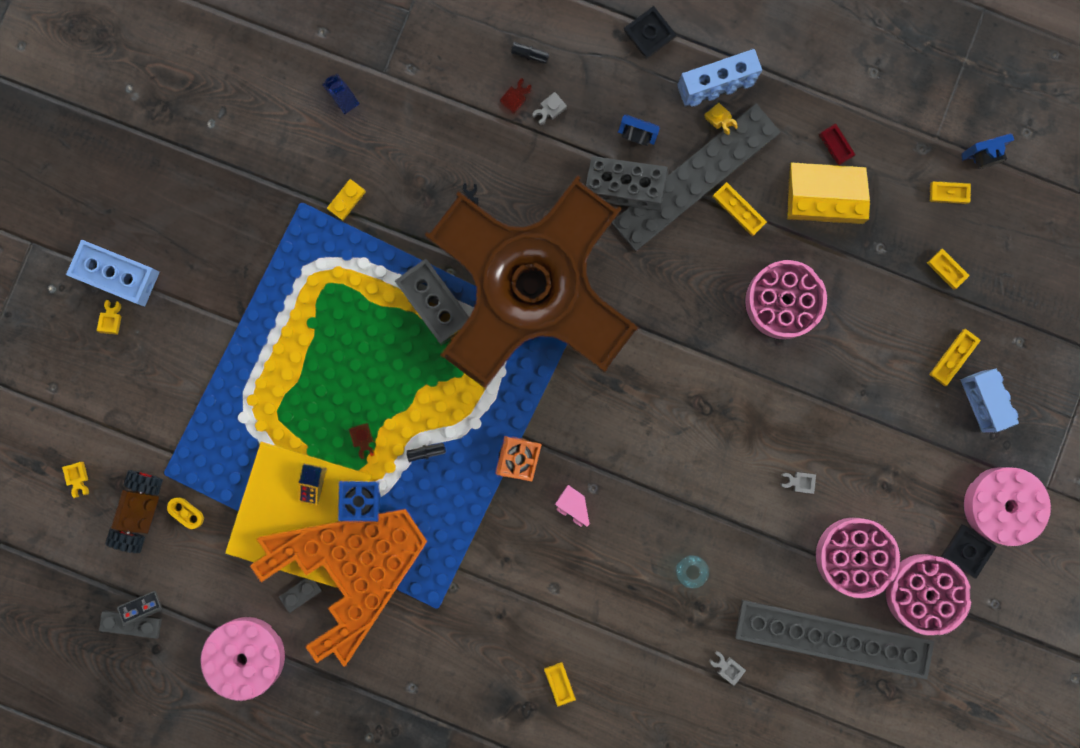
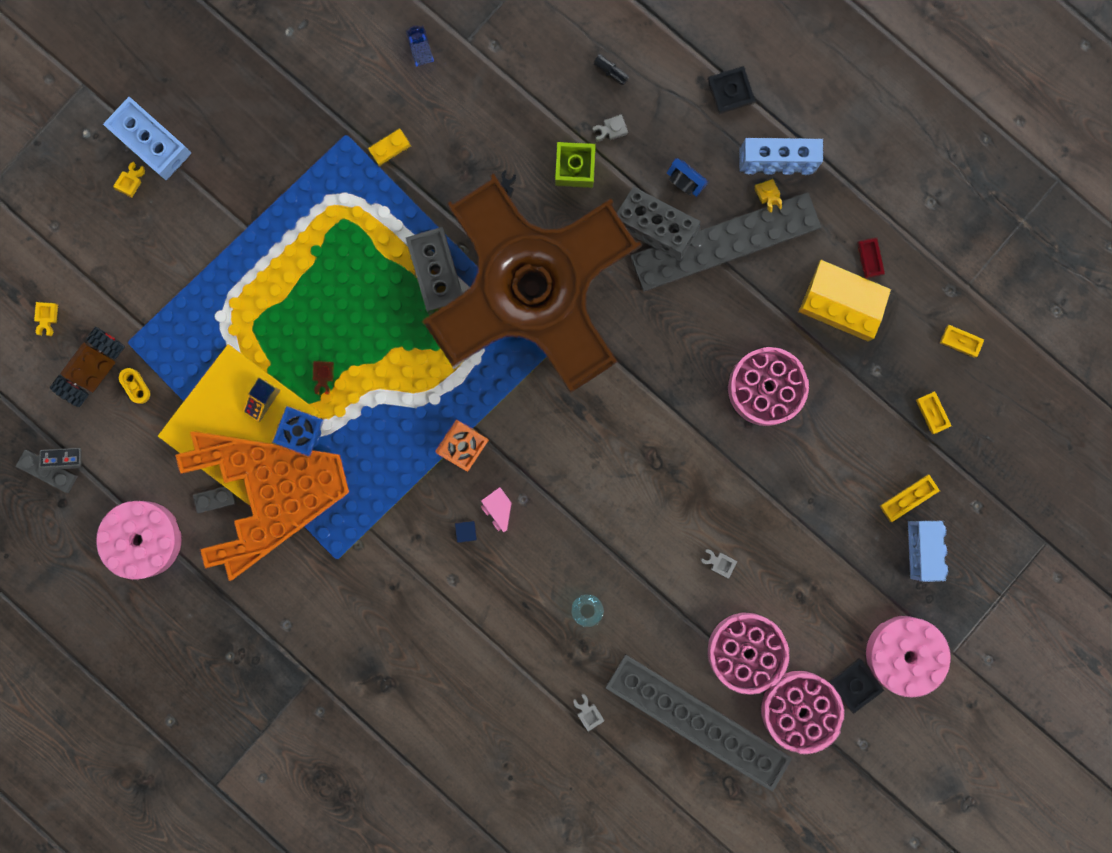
camera: 20 degrees right, 0 degrees up
(426, 452) = (378, 408): black axle -> none
(514, 97) = (581, 107): clear red plate -> none
(529, 154) = (575, 164): none -> lime brick
(550, 538) = (466, 531): none -> dark blue tile
(559, 684) = (425, 670): yellow tile -> none
(739, 209) = (755, 286): yellow plate -> none
(988, 152) = (1012, 315): blue piece -> none

